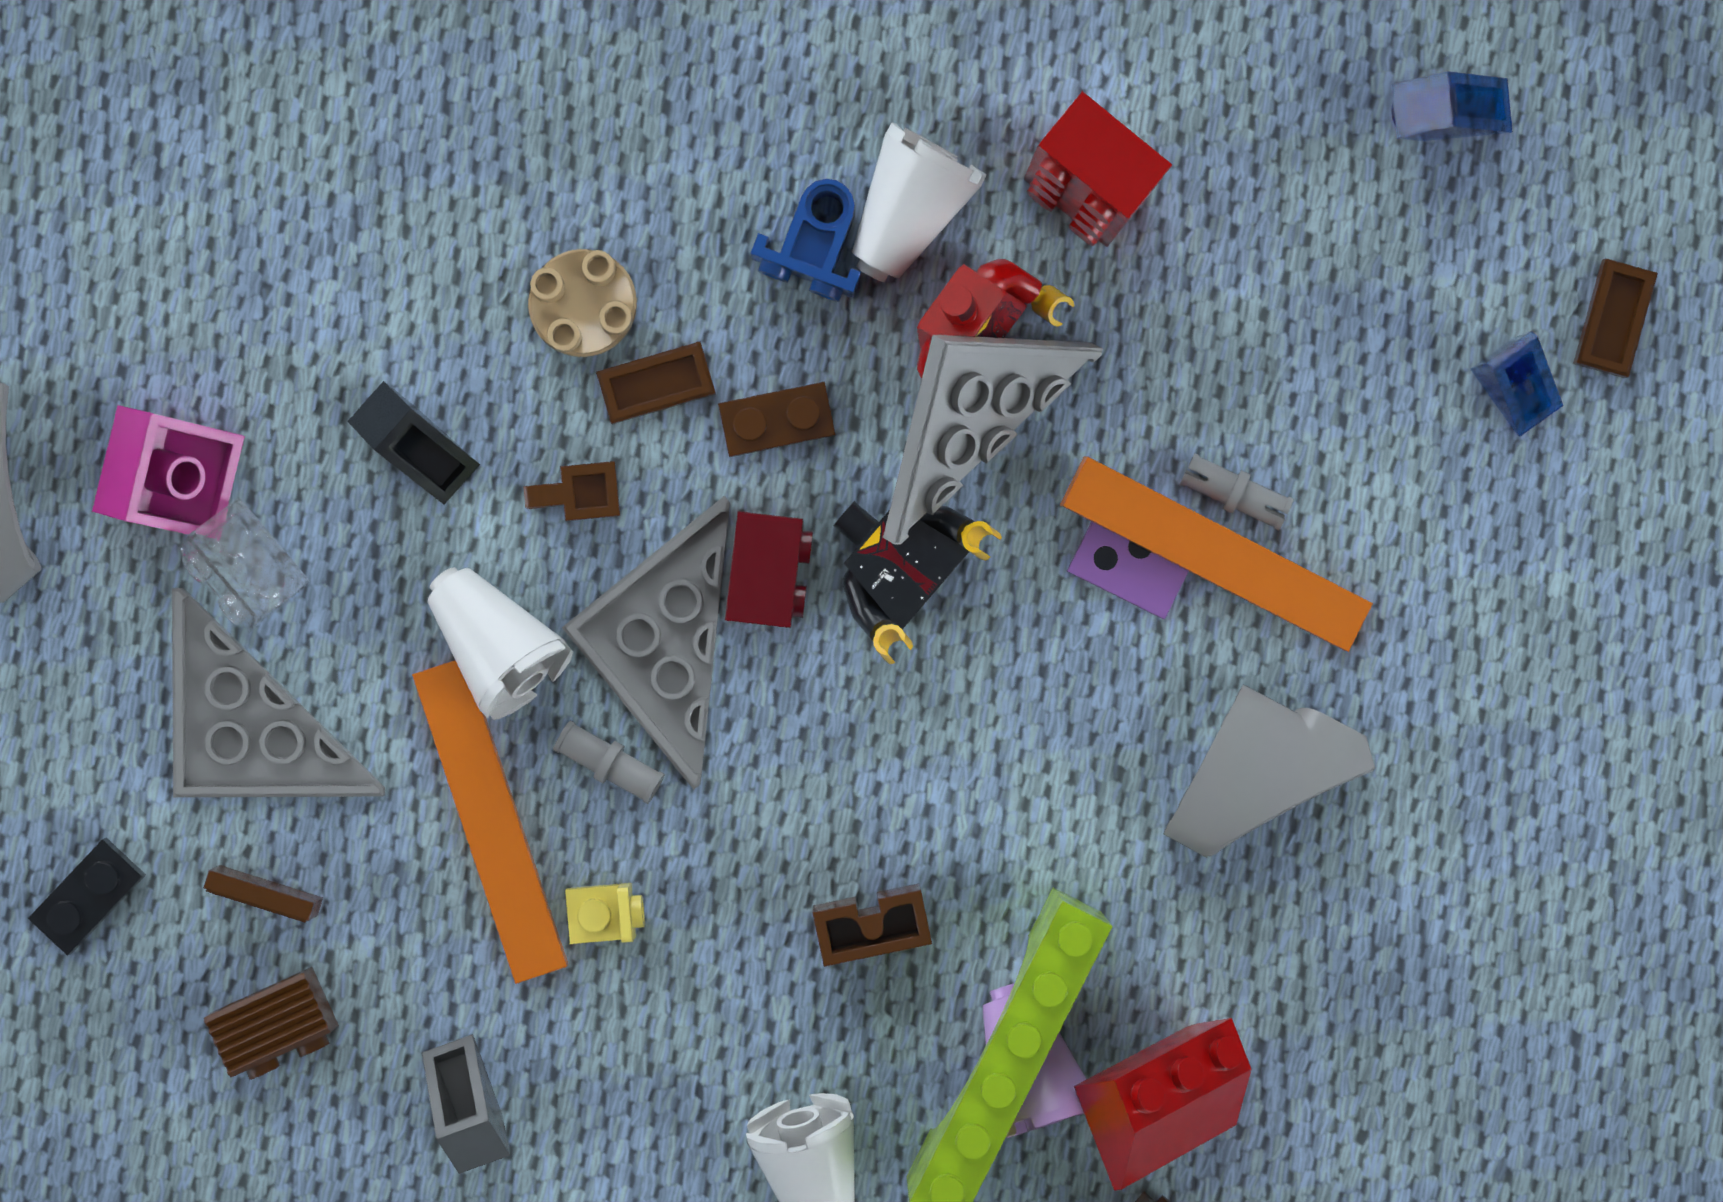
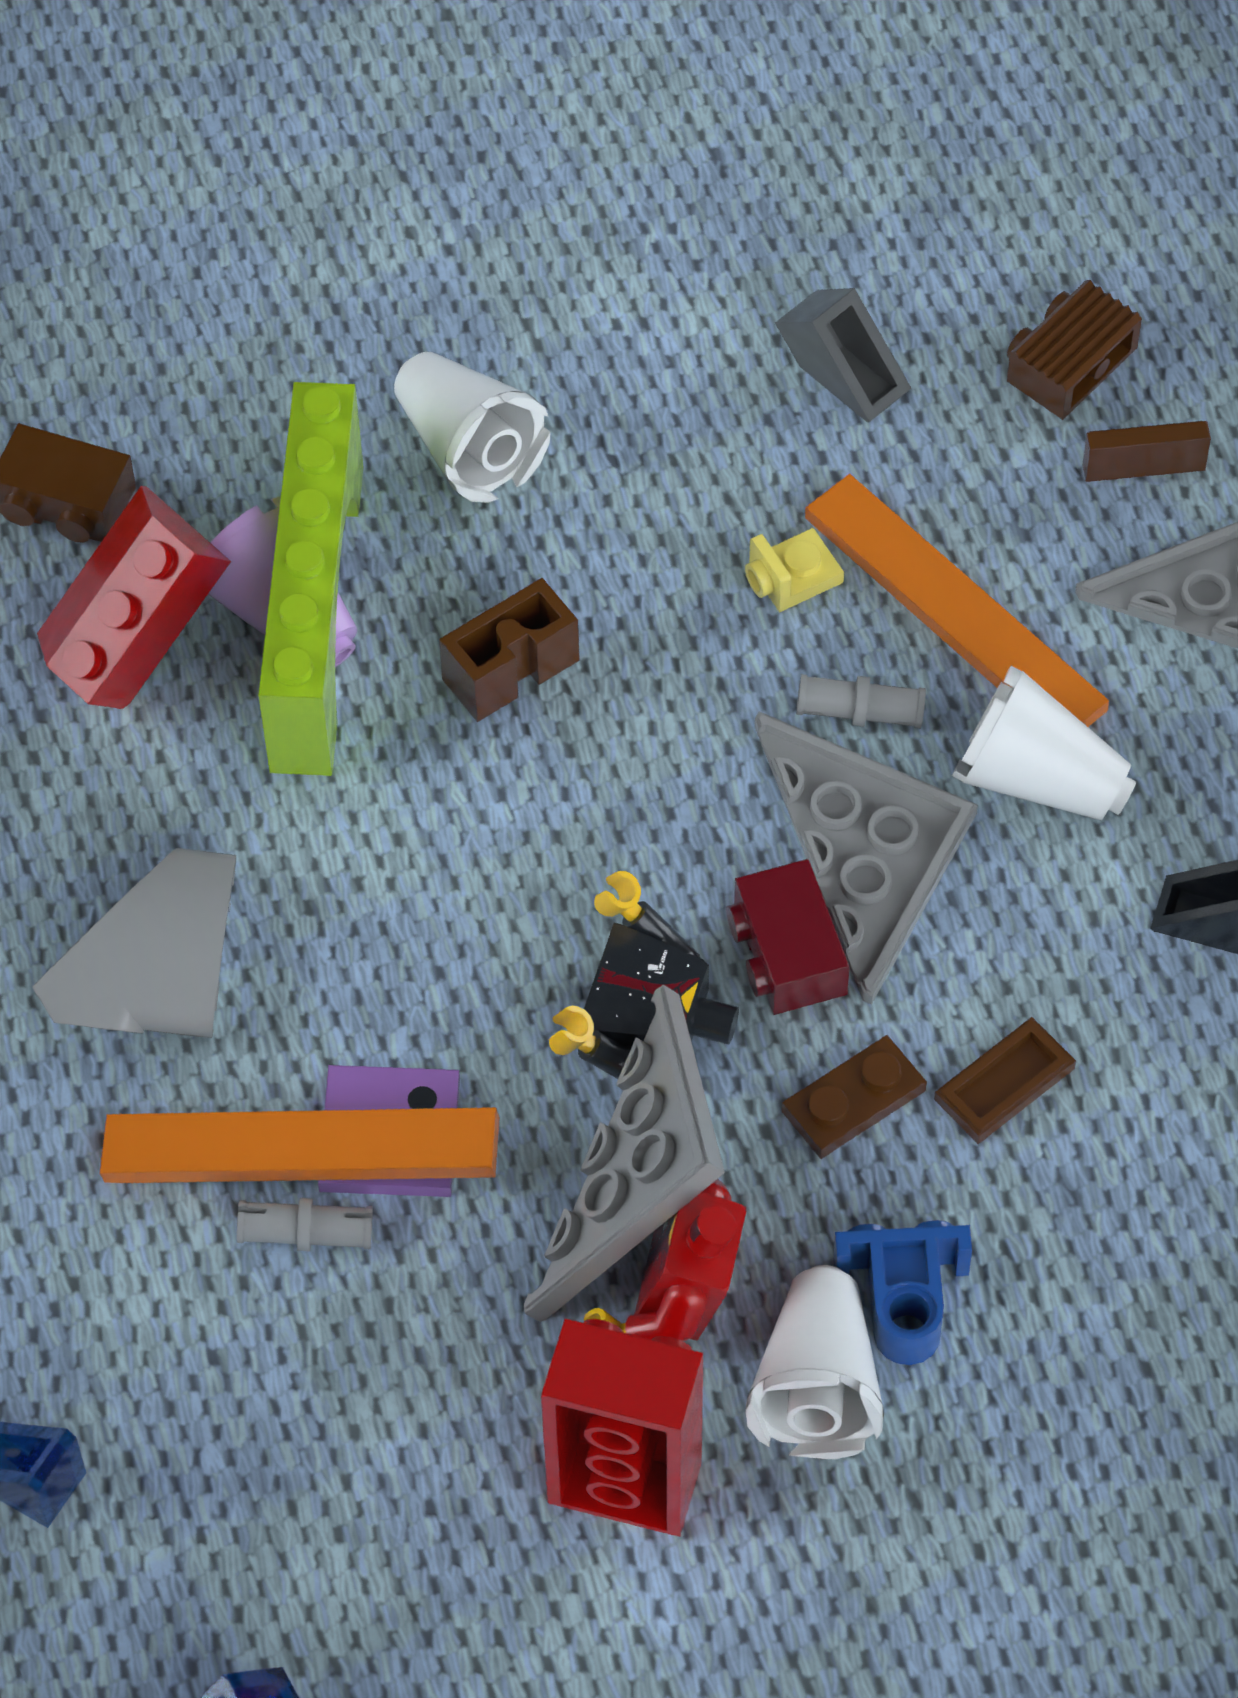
camera: 160 degrees right, 30 degrees down
(582, 302) = (1128, 1123): tan dish -> none
(585, 492) = (1028, 938): reddish brown plate -> none

